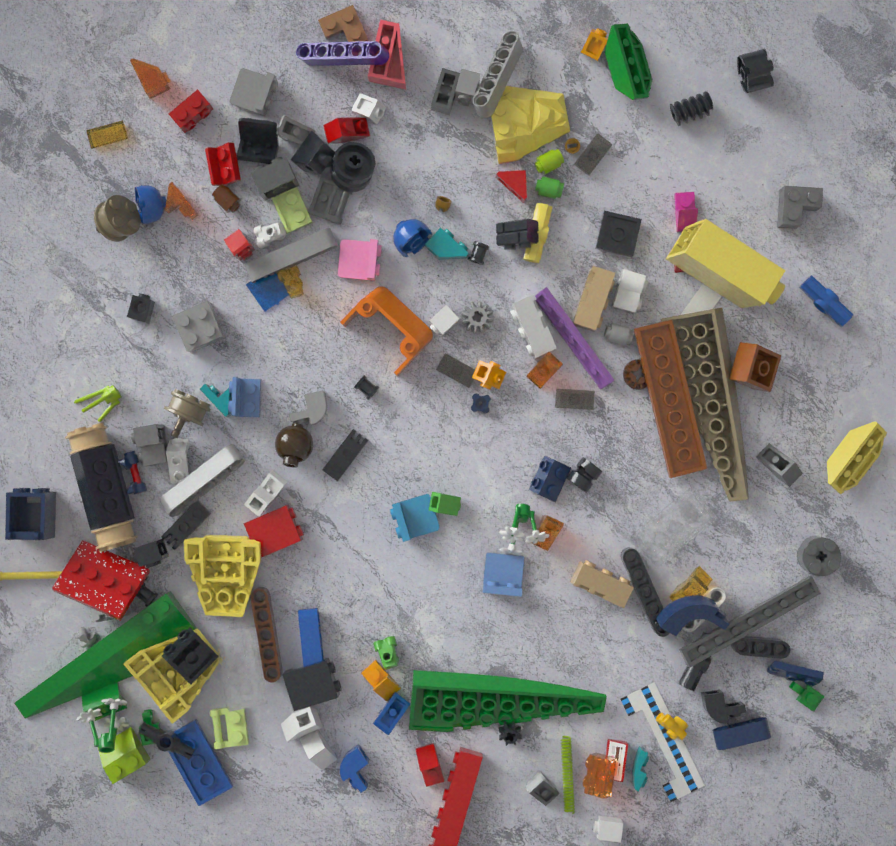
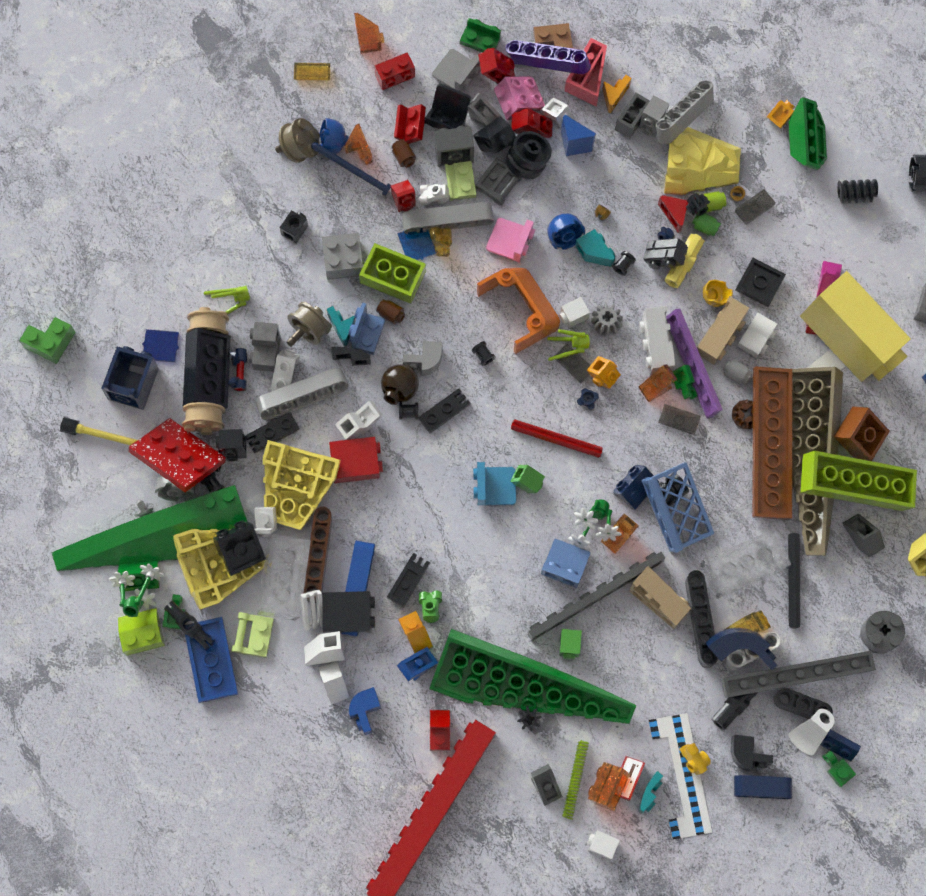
camera: 10 degrees right, 15 degrees down
(49, 468) = (161, 344): none -> clear blue piece
(179, 232) = (353, 169): none -> dark blue bar
(207, 619) = (265, 521): none -> white bracket
(243, 427) = (357, 357): none -> black slope
(253, 331) = (392, 273): none -> lime brick
(263, 370) = (390, 311): none -> reddish brown brick
(267, 46) = (480, 35): none -> green bracket
(283, 699) = (314, 623): none -> white tile
(292, 78) = (496, 65): none -> red brick
(310, 467) = (402, 407): none -> black bush
(324, 101) = (518, 94): none -> bright pink bracket
(359, 634) = (407, 581): none -> black hinge
(394, 133) = (576, 137): none -> blue slope
(418, 73) = (614, 94): none -> light orange slope
(456, 349) = (579, 340): none -> lime plant
(464, 452) = (556, 438): none -> red axle
(512, 212) = (665, 233): none -> dark blue plate
(528, 651) = (570, 644): none -> bright green brick
(534, 604) = (588, 599): none -> dark grey plate
(536, 173) = (697, 204): none -> black gear
(569, 358) = (684, 382): none -> green plate
(578, 259) = (716, 293): none -> yellow hair
(586, 505) = (662, 512): none -> medium blue fence
(723, 527) = (794, 581): none -> black axle
(763, 420) = (858, 481): none -> lime brick
(775, 673) = (811, 733): none -> white piece

